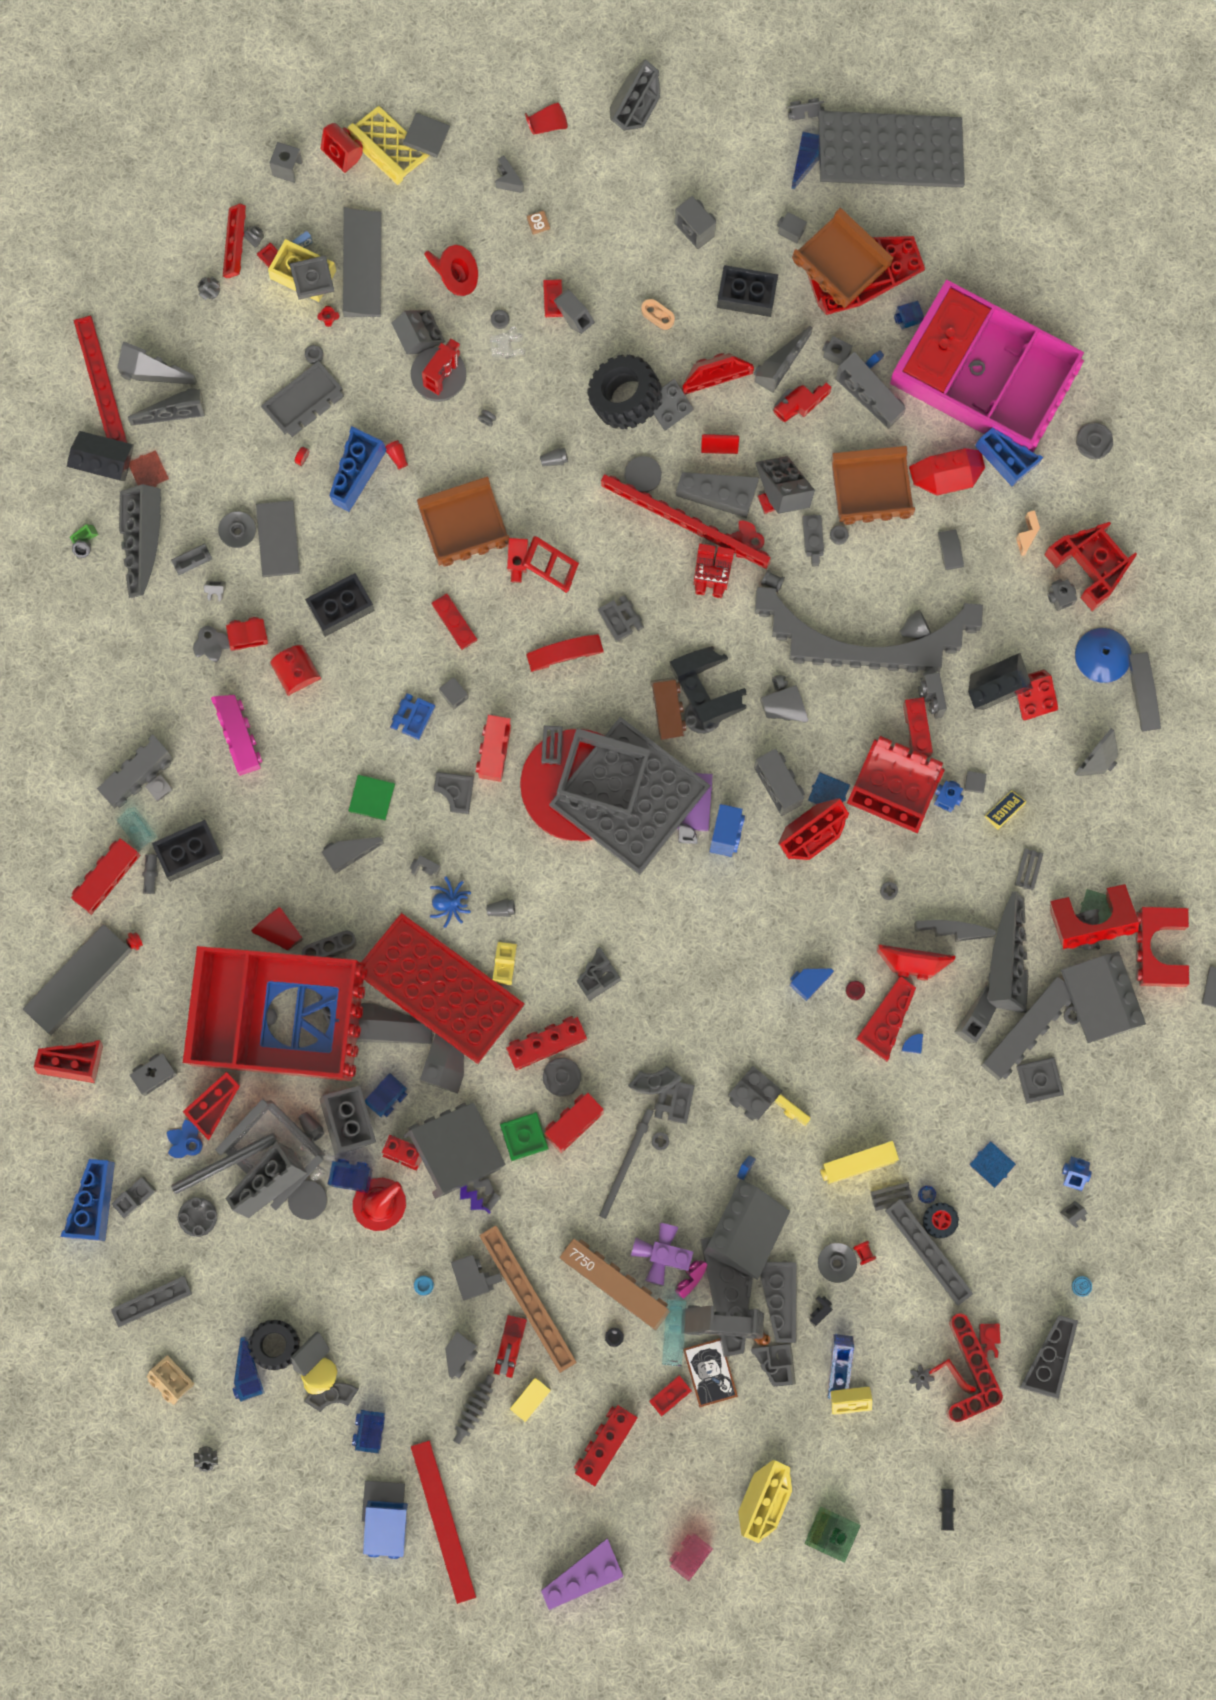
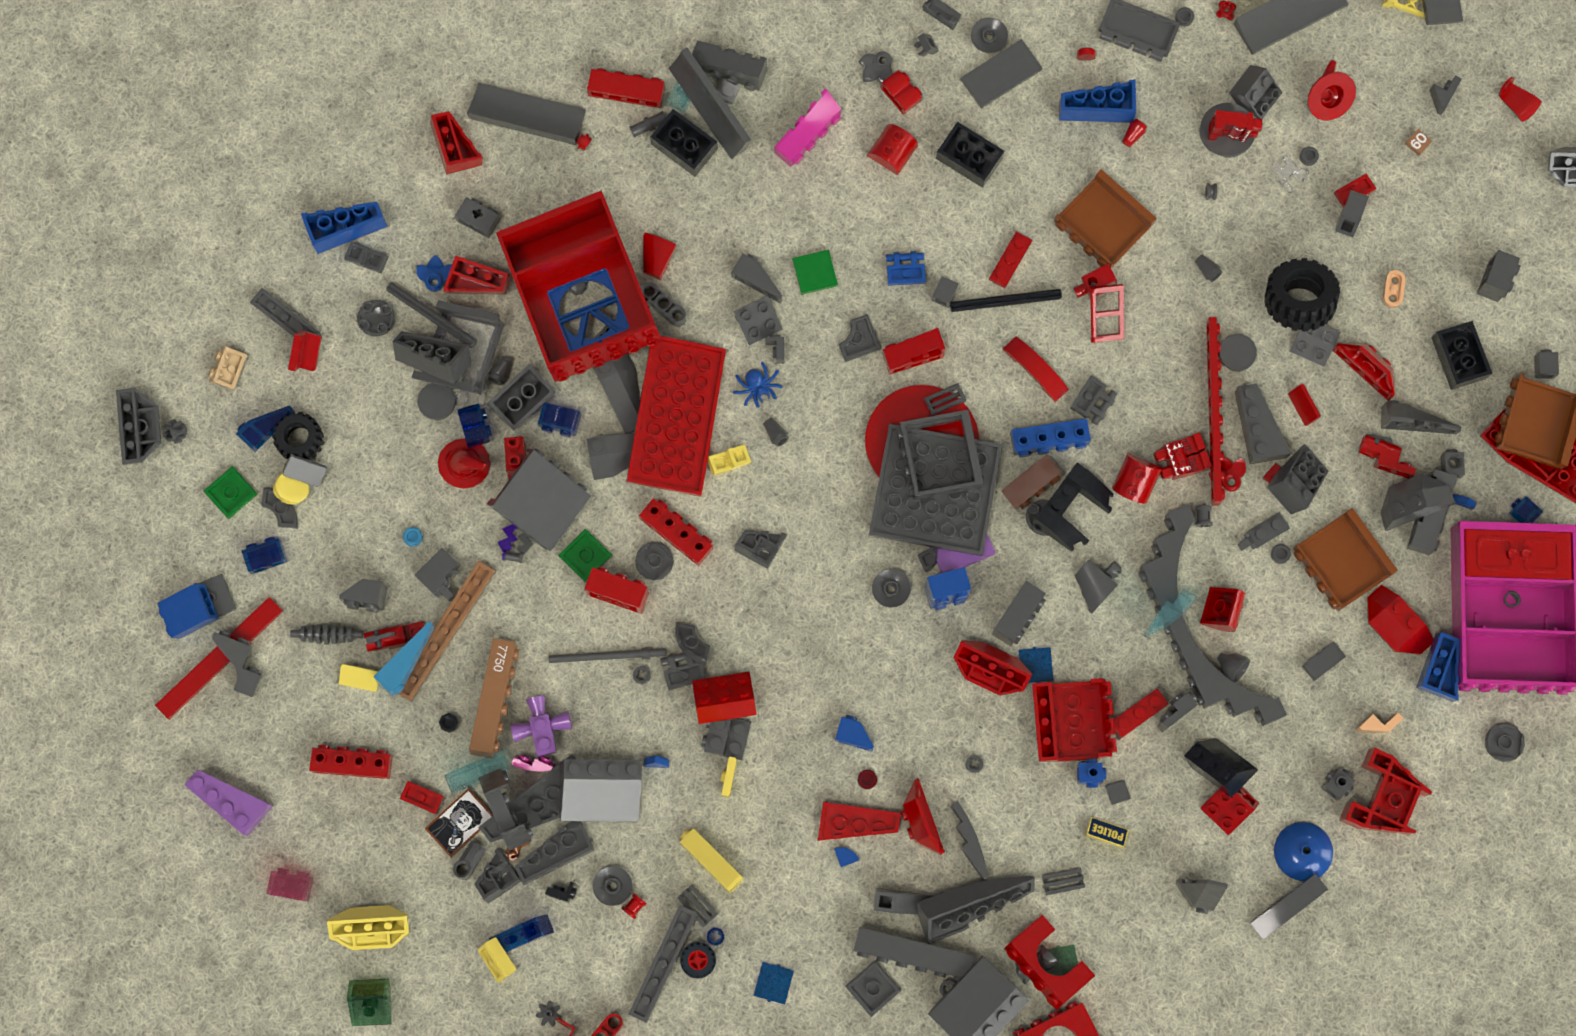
camera: 65 degrees right, 0 degrees up
(164, 808) = (709, 104): none -> dark grey arch
(183, 1491) = (137, 425): none -> dark grey wedge
(195, 1297) = (304, 351): none -> red panel
(291, 1435) = (230, 492): none -> green tile
(389, 870) = (758, 320): none -> dark grey hinge
(451, 1500) = (238, 652): none -> dark grey arch
(489, 645) = (1005, 300): none -> black axle
(546, 1359) = (399, 668): none -> dark azure wedge
(634, 672) = (1050, 437): none -> blue brick
(699, 871) = (895, 579): none -> dark grey dish
(710, 619) = (1136, 479): none -> red brick
(721, 1076) = (724, 697): none -> red brick
(748, 1379) = (470, 859): none -> dark grey piece
(846, 653) = (1170, 613): none -> clear light blue slope
(854, 398) = (1414, 500): none -> dark grey wedge
(863, 608) = (1223, 608): none -> red brick

